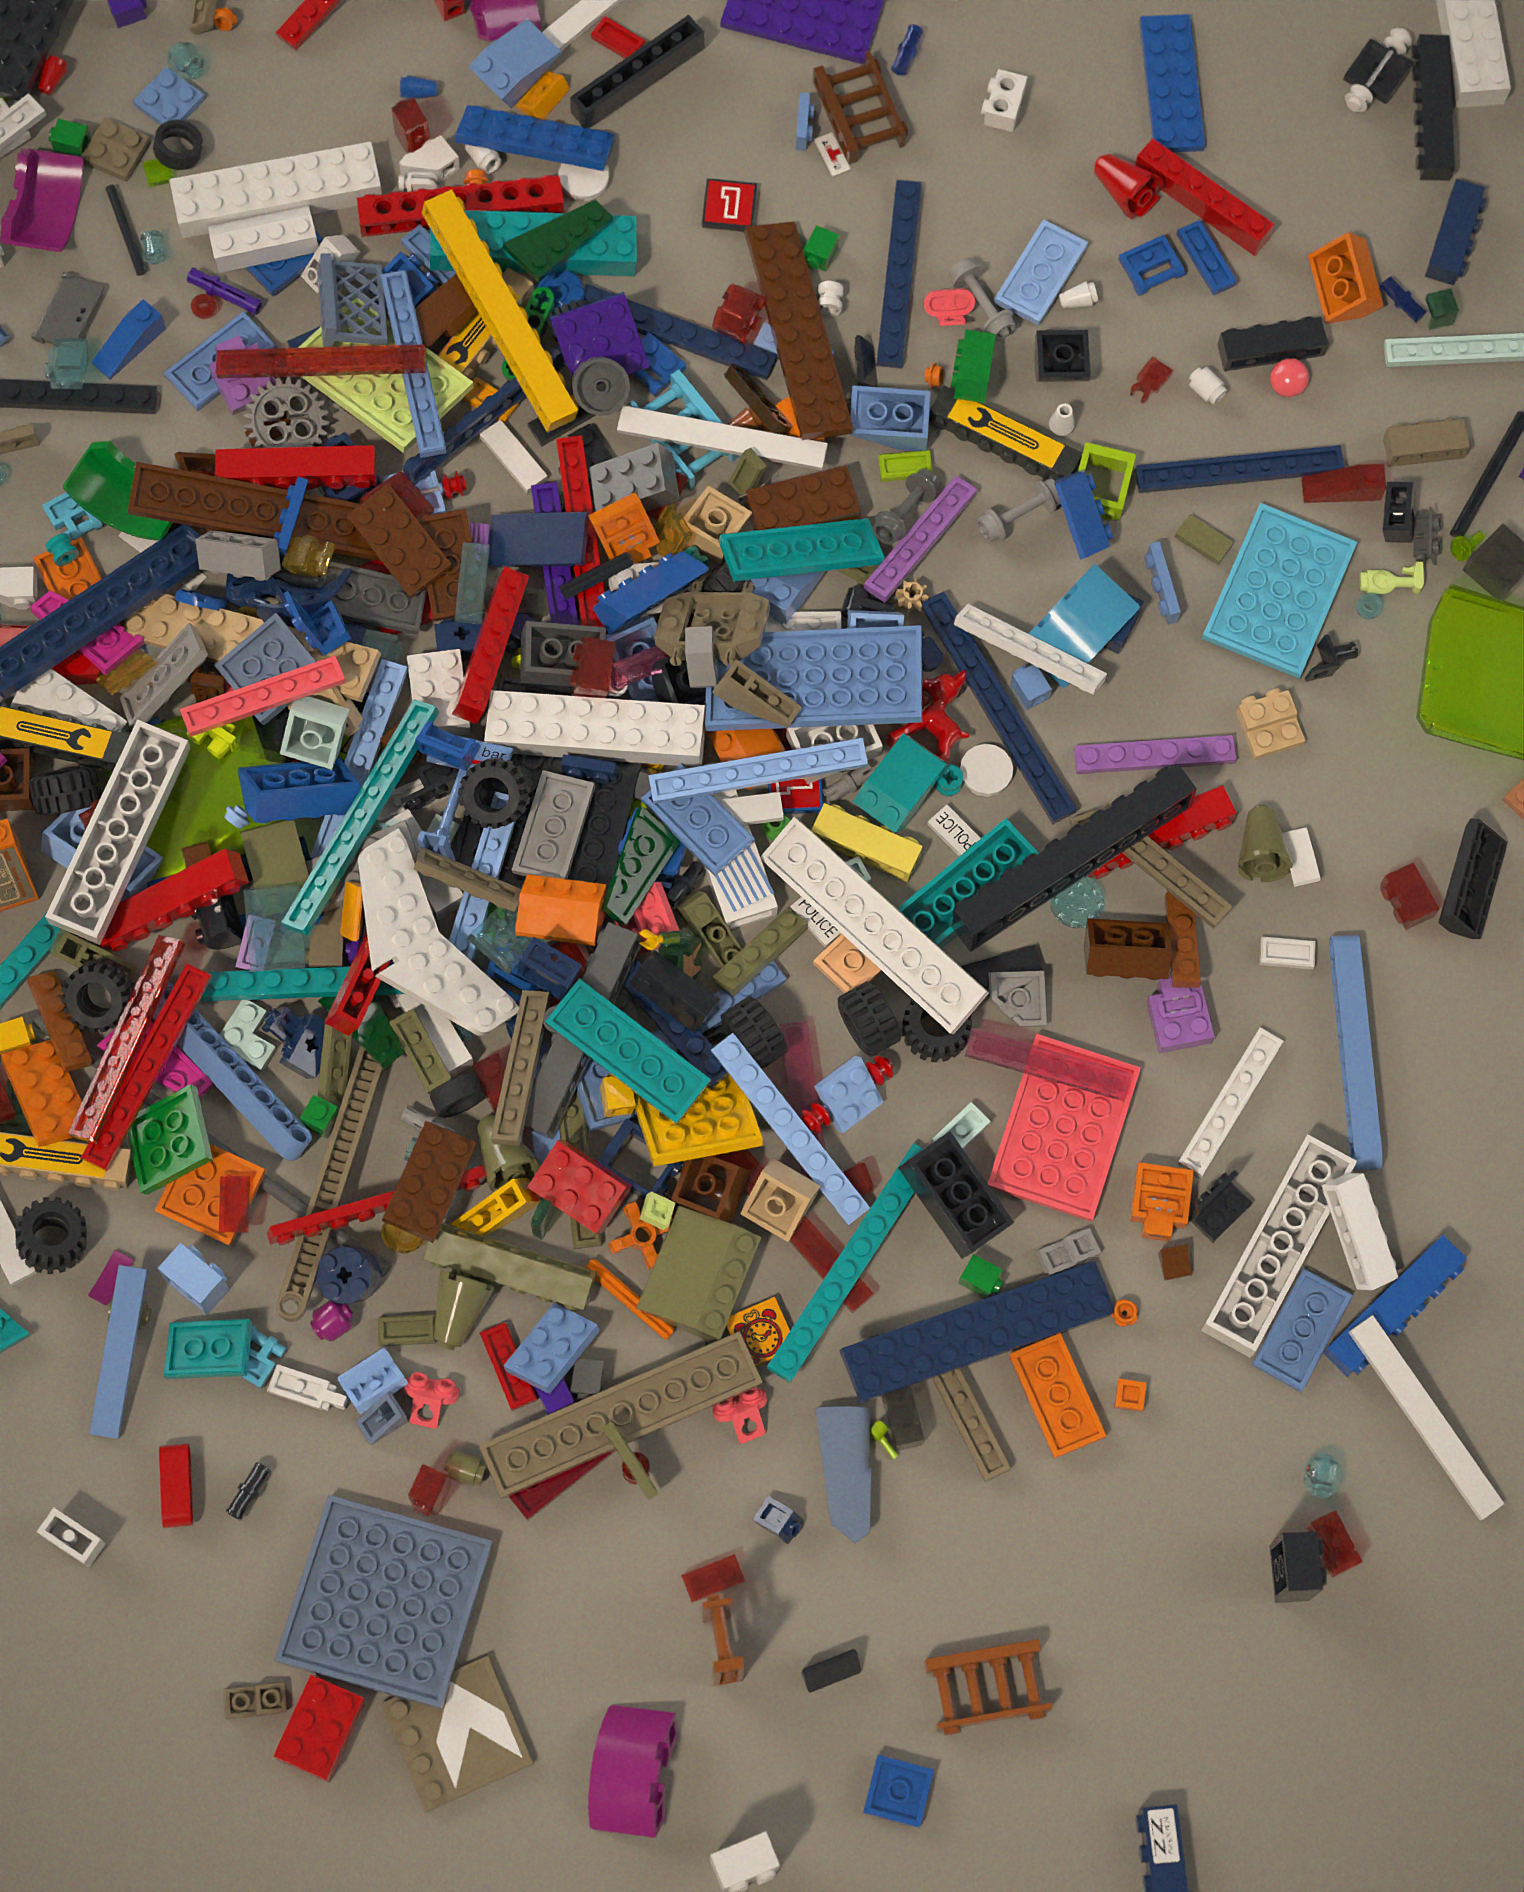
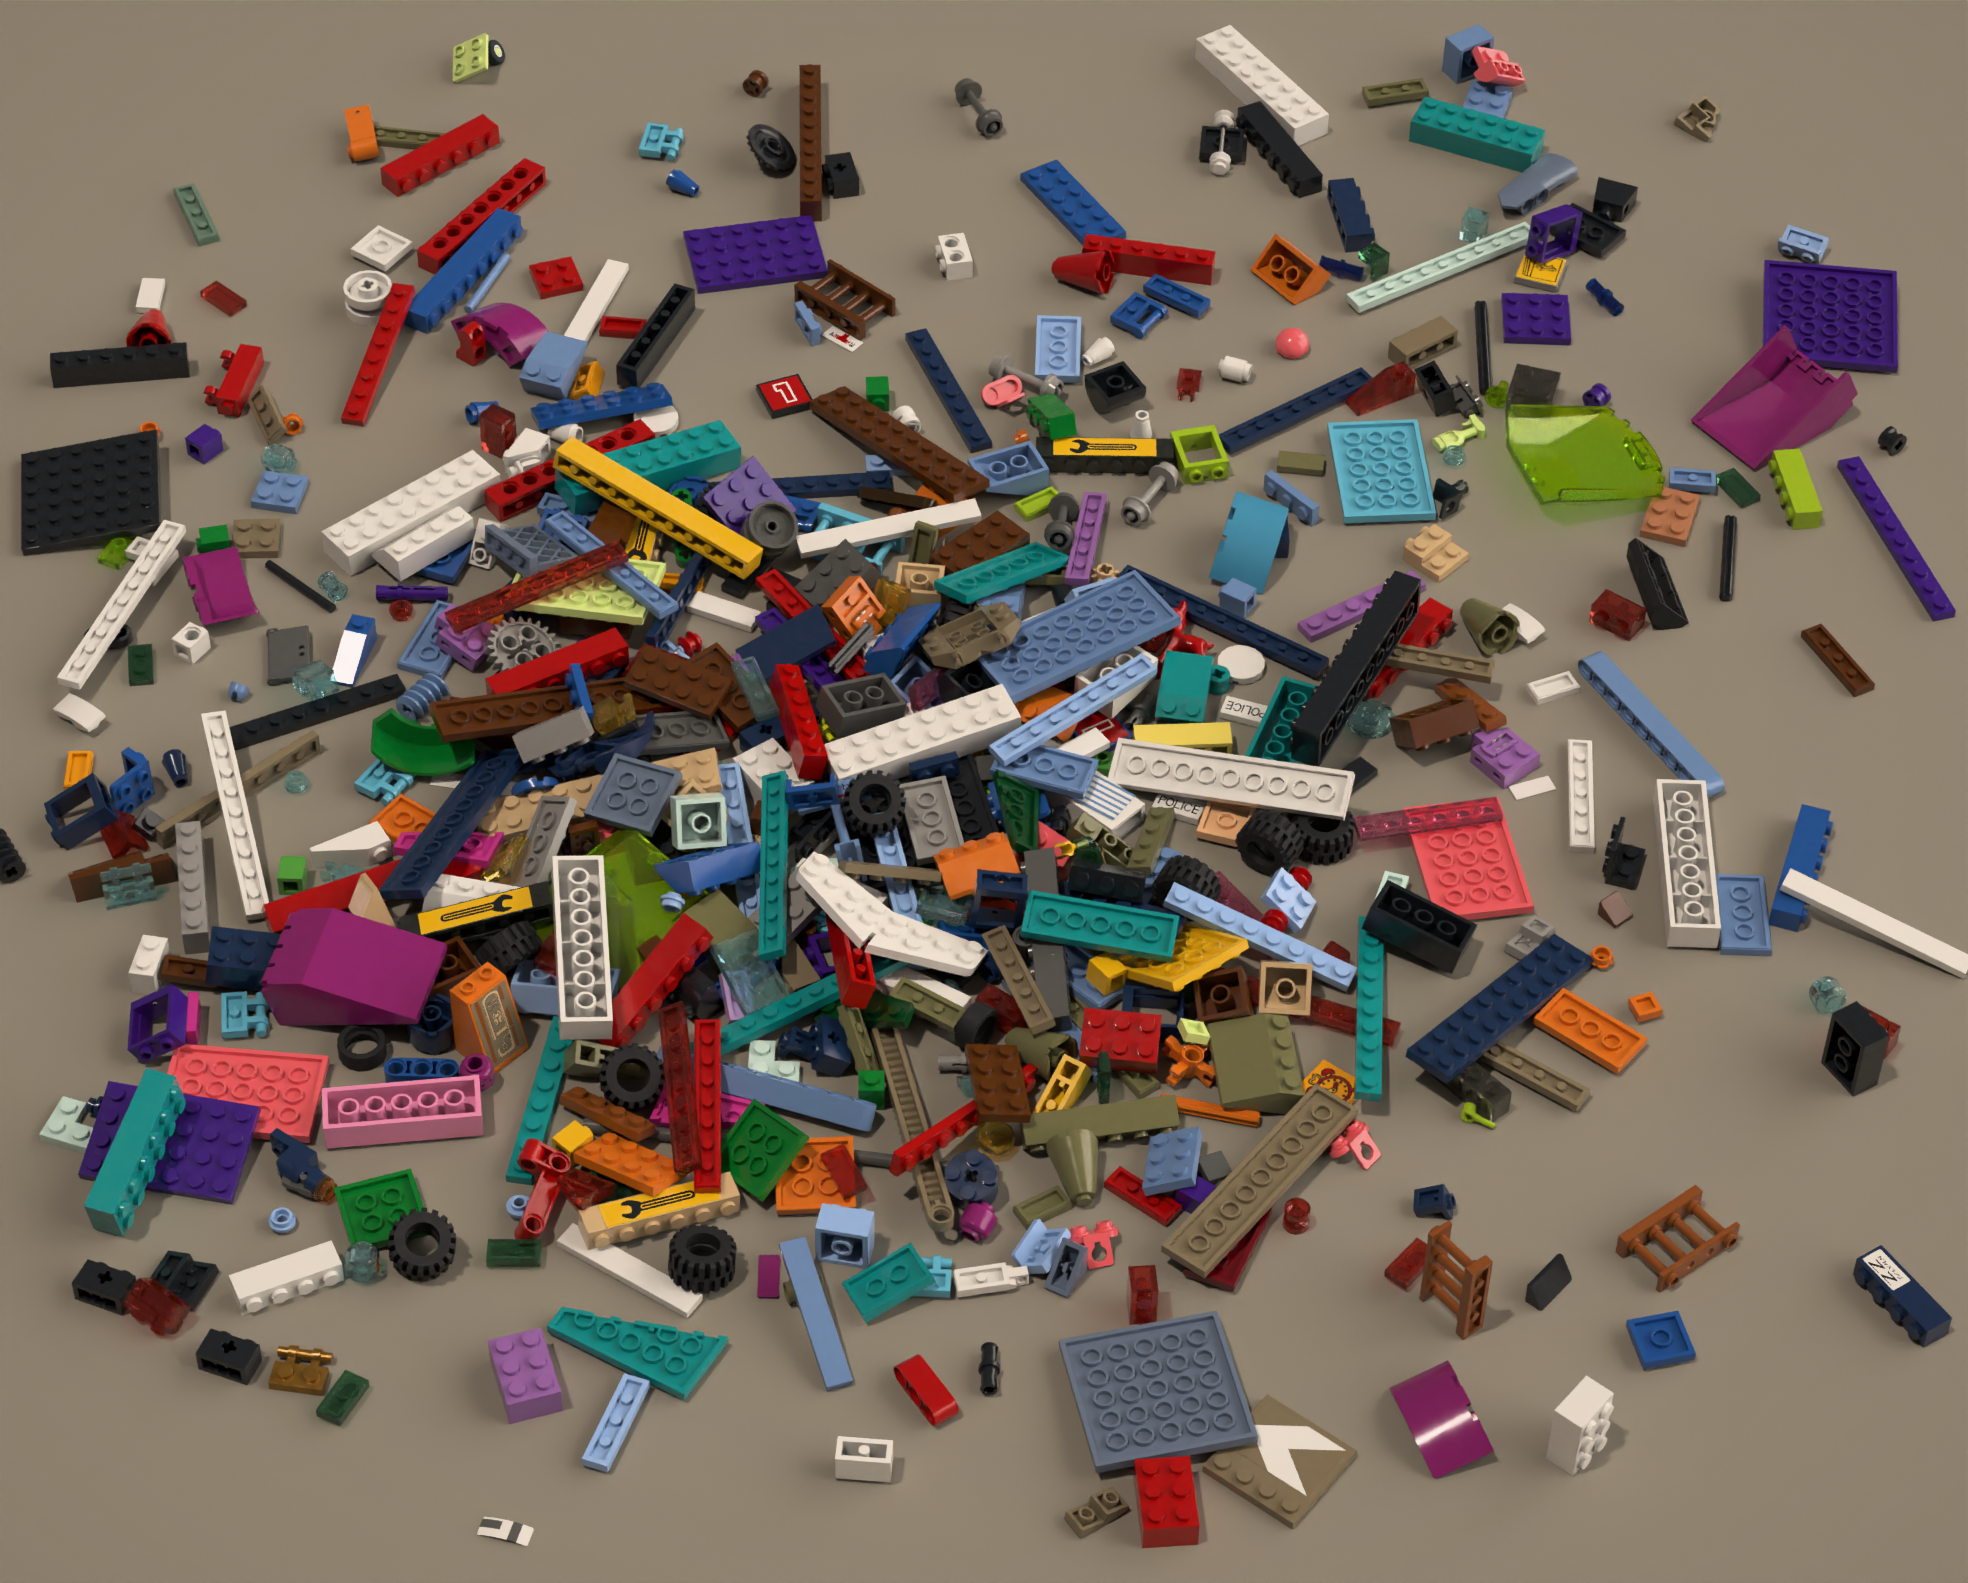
camera: 25 degrees left, 25 degrees down
(52, 73) = (170, 506): red cone -> none
(61, 549) = (393, 801): teal wheel -> none
(156, 173) = (301, 540): clear neon green tile -> none
(161, 428) = (416, 699): none -> medium blue piece
(180, 129) = (313, 504): black tyre -> none
(222, 741) = (618, 847): neon yellow hips -> none
(262, 696) = (646, 801): coral plate -> none
(323, 626) = (655, 745): blue bracket -> none
(352, 911) = (809, 930): light orange slope -> none
(465, 1468) = (1166, 1273): olive brick -> none
(555, 241) = (671, 450): dark green wing -> none
(592, 668) = (895, 694): clear red brick -> none
(630, 1460) = (1292, 1198): olive tile -> none
(700, 657) = (980, 651): light grey slope -> none
(739, 313) = (843, 451): clear red brick -> none
(754, 695) = (1034, 656): dark tan slope -> none
(845, 1459) = (1456, 1136): sand blue panel -> none
(865, 362) = (956, 448): black slope -> none
(907, 50) = (856, 254): clear blue pin -> none
(981, 1277) = (1474, 977): green brick -> none
(1020, 996) = (1376, 790): light grey plate -> none
(1030, 649) = (1213, 569): white plate -> none
(1083, 513) = (1201, 471): blue slope -> none
(1161, 1199) = (1575, 873): orange piece -> none
(1189, 1066) = (1532, 787): none -> white sticker
(1272, 343) = (1263, 327): black brick -> none
(1360, 1231) = (1740, 823): white brick -> none

